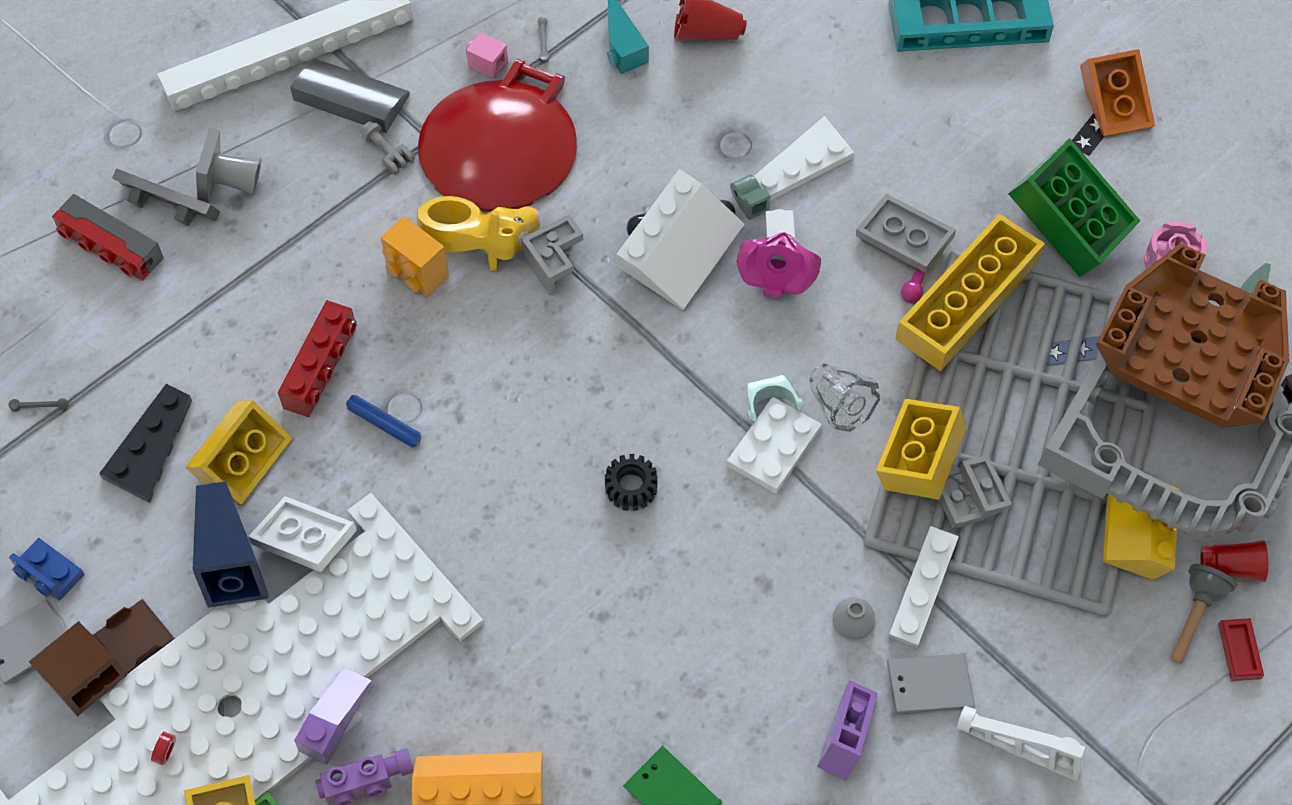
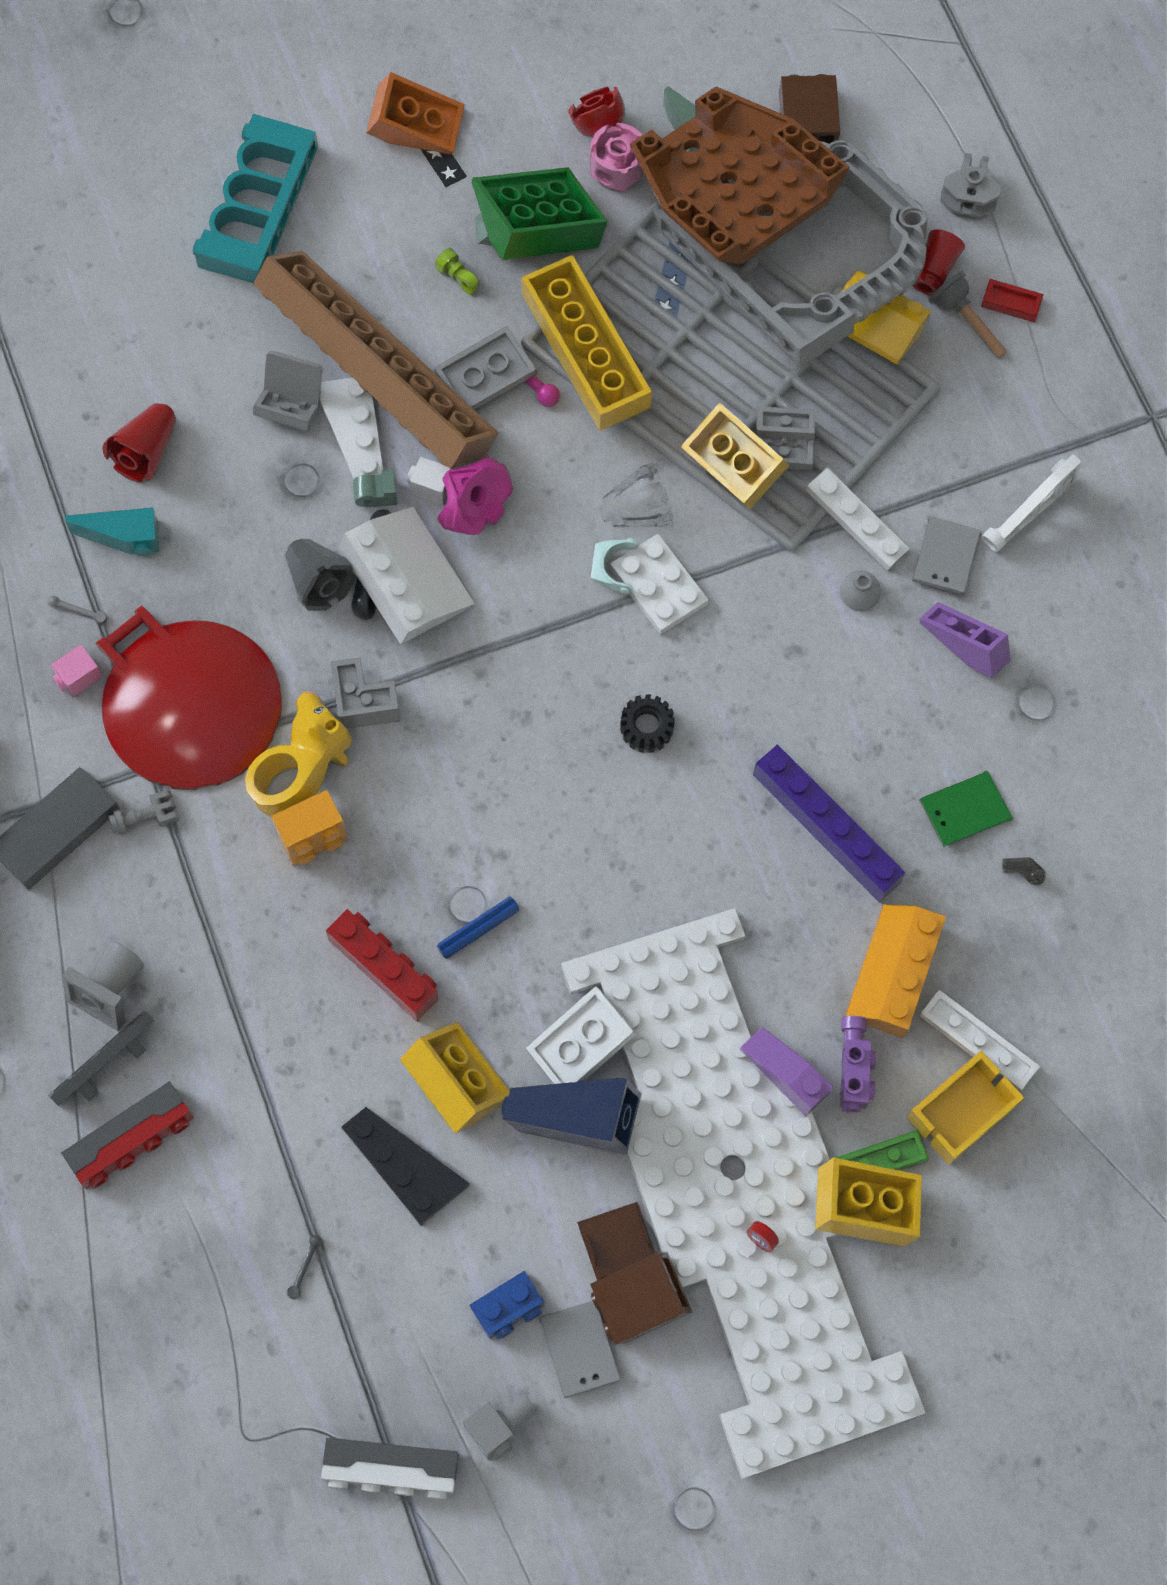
camera: 70 degrees left, 10 degrees up
(597, 670) = (828, 823): none -> dark purple brick
(645, 179) = (318, 574): none -> dark grey cone
(803, 103) = (290, 391): none -> light grey bracket
(864, 146) = (375, 359): none -> medium nougat brick
(993, 170) = (449, 261): none -> lime piece
(1214, 223) = (598, 110): none -> red cylinder

